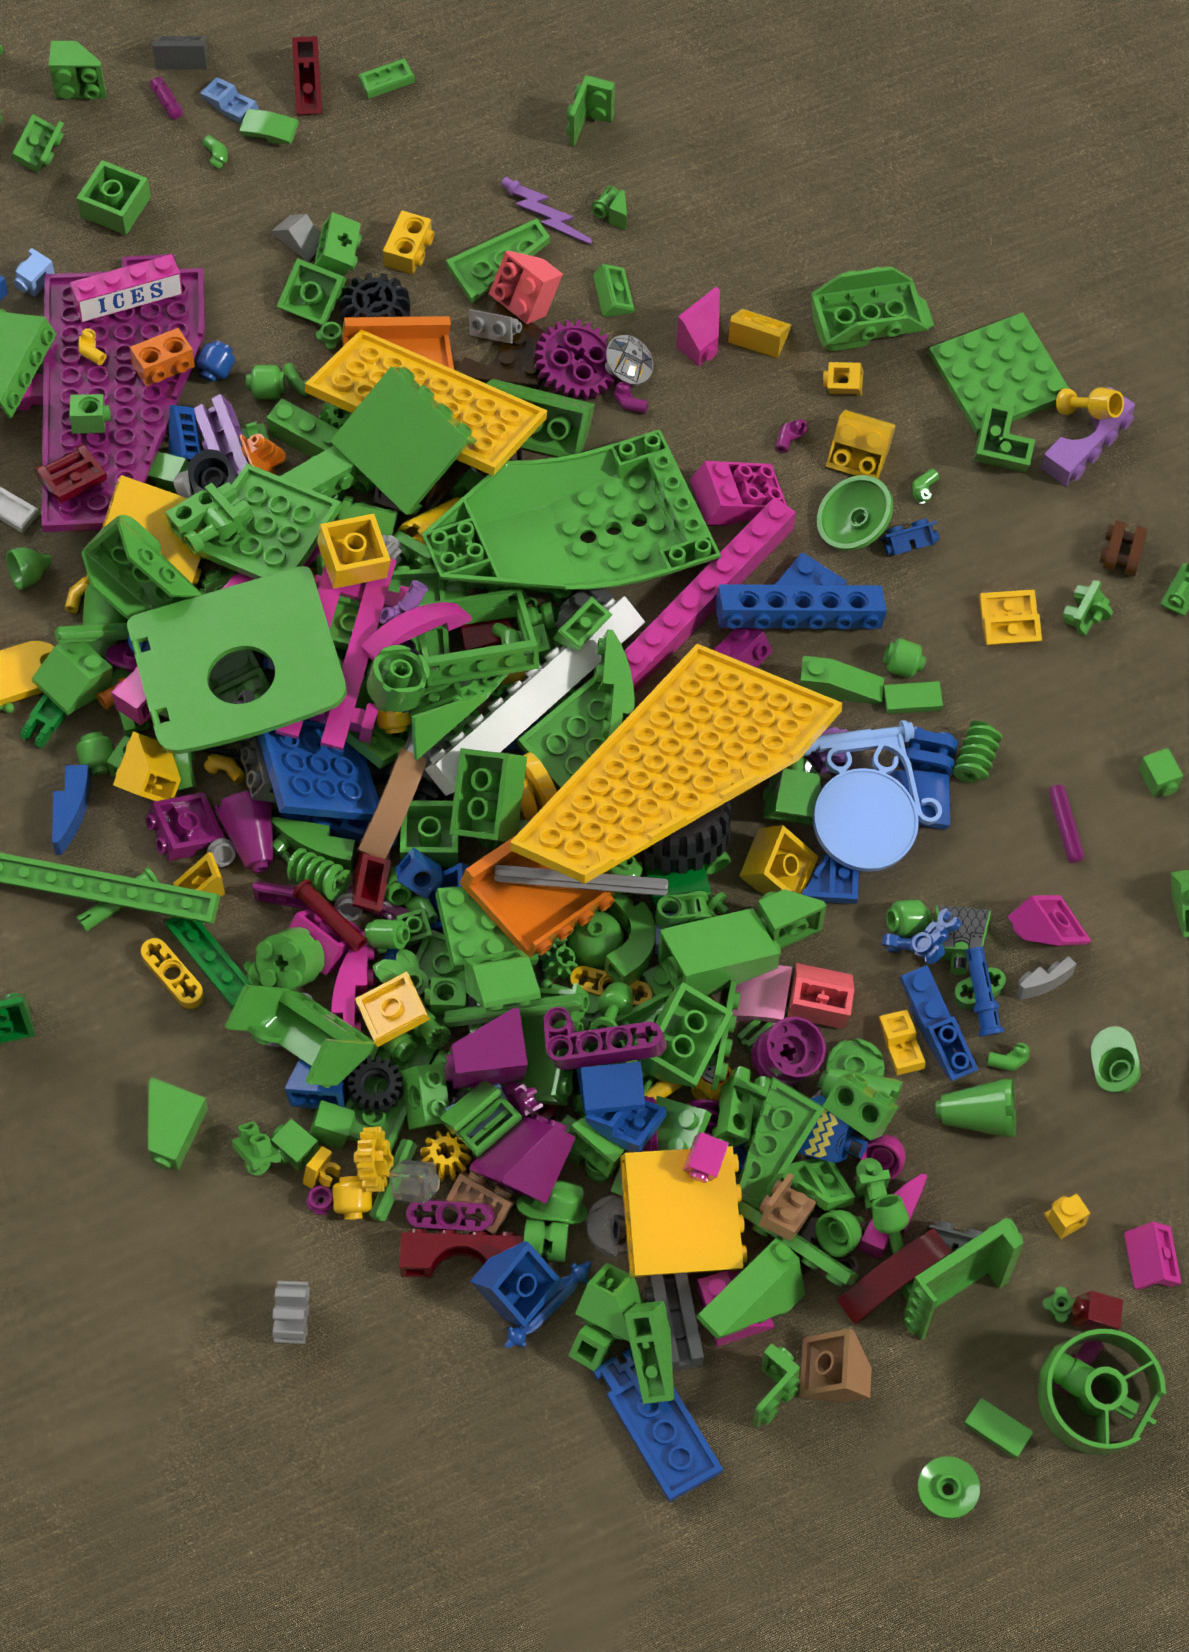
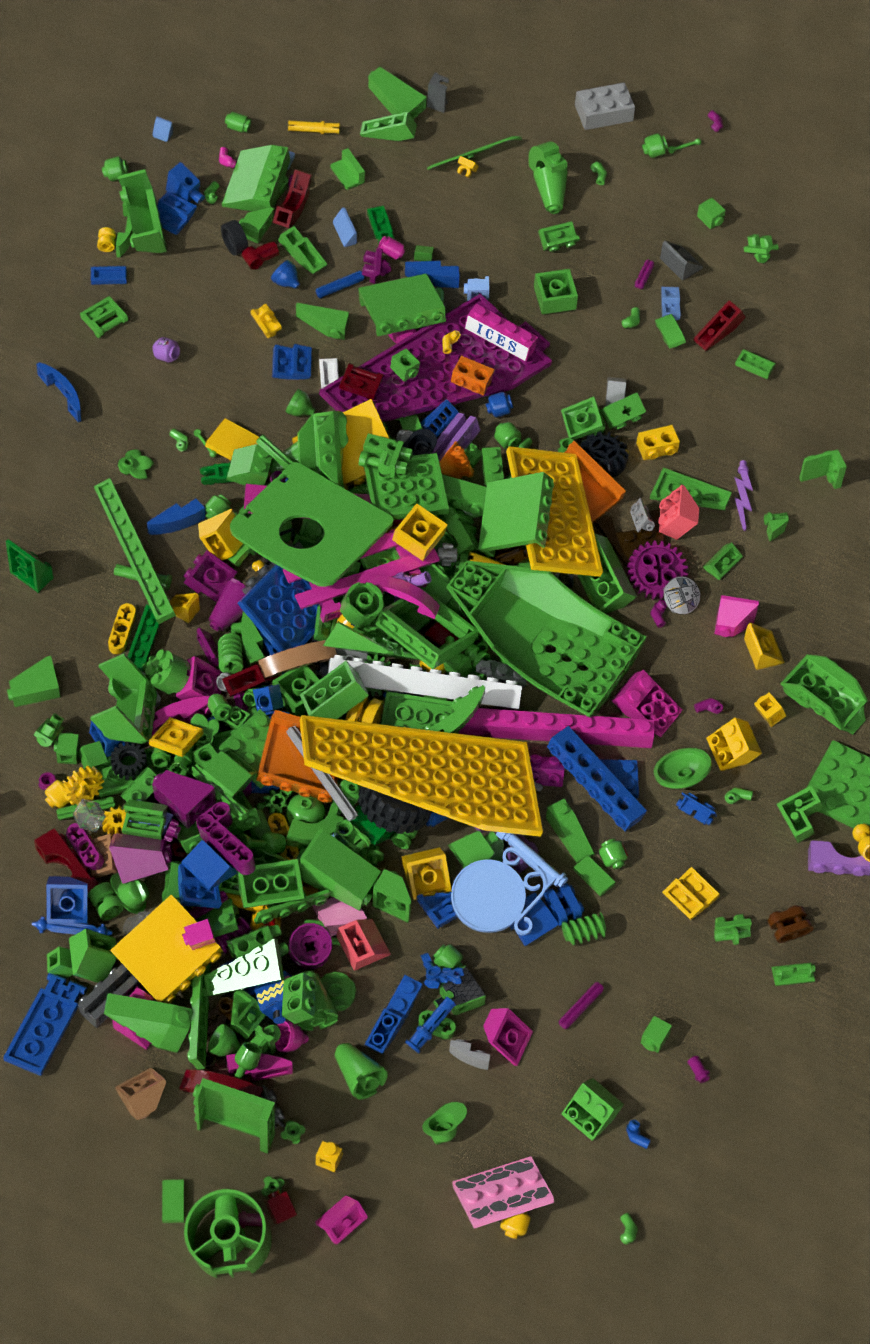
camera: 50 degrees right, 5 degrees down
(75, 71) = (613, 220): bright green slope -> none
(222, 851) = (208, 603): light grey plate -> none
(319, 1167) = (62, 766): yellow tile -> none
(330, 915) = (207, 673): dark red pin -> none
(583, 625) = (482, 675): bright green slope -> none
(651, 1350) = (79, 987): bright green slope -> none
(782, 1369) = (106, 1071): bright green bracket -> none
(786, 1209) = (212, 1003): medium nougat bracket -> none
(902, 1042) = (370, 1005): yellow slope -> none
(953, 1473) = (112, 1186): bright green dish -> none
(1011, 1060) = (403, 1069): bright green arm -> none

